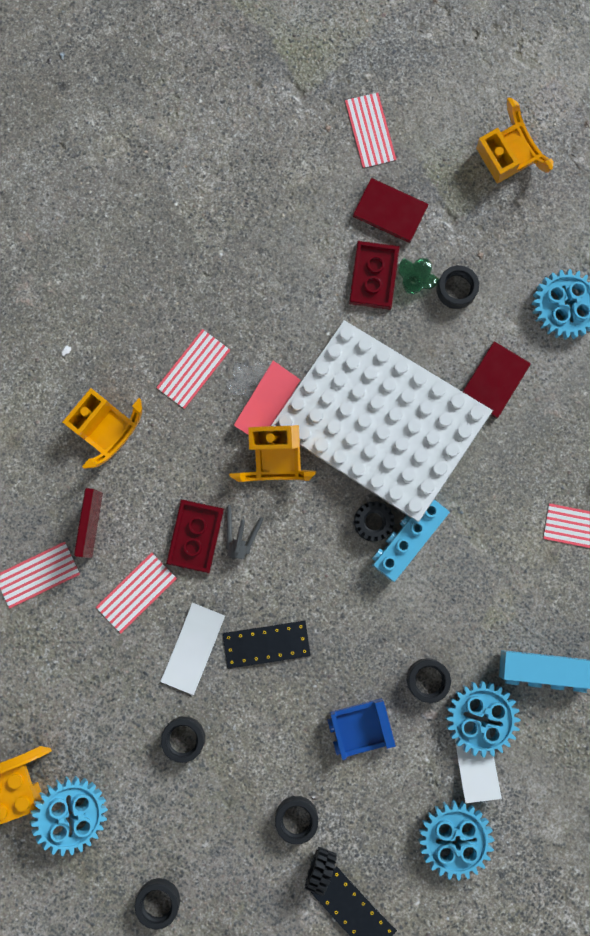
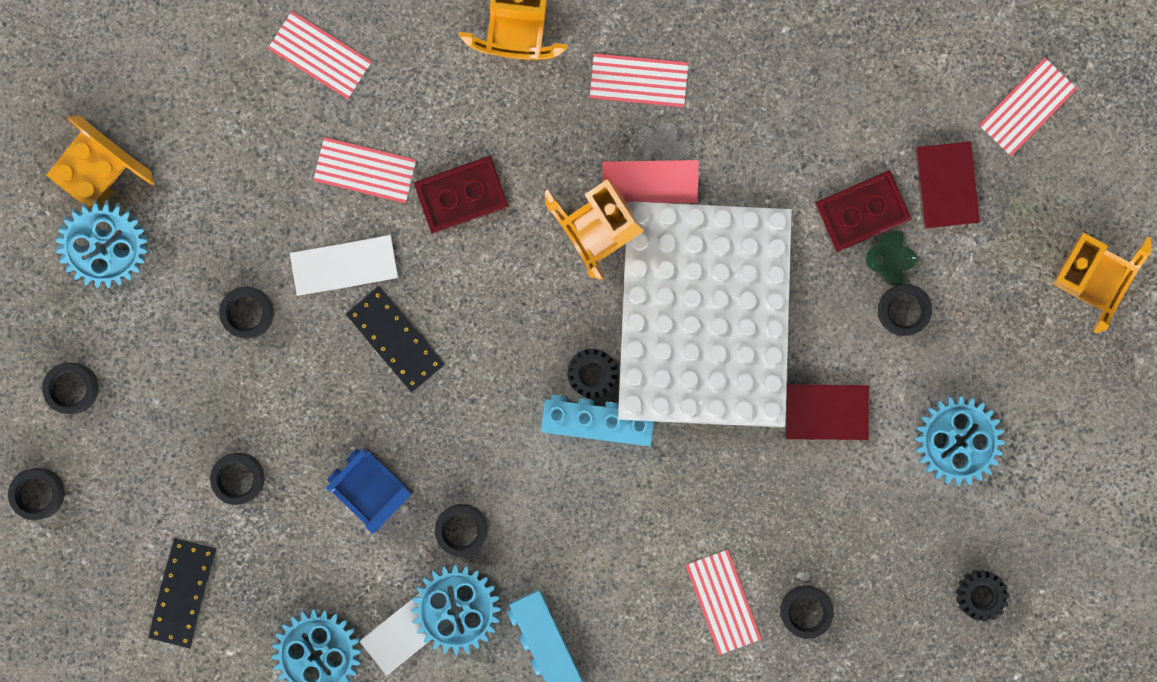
camera: 65 degrees right, 5 degrees up
(88, 523) = (404, 75): dark red tile -> none
(237, 547) = (476, 246): dark grey plant -> none
(320, 871) = (202, 532): black tyre -> none

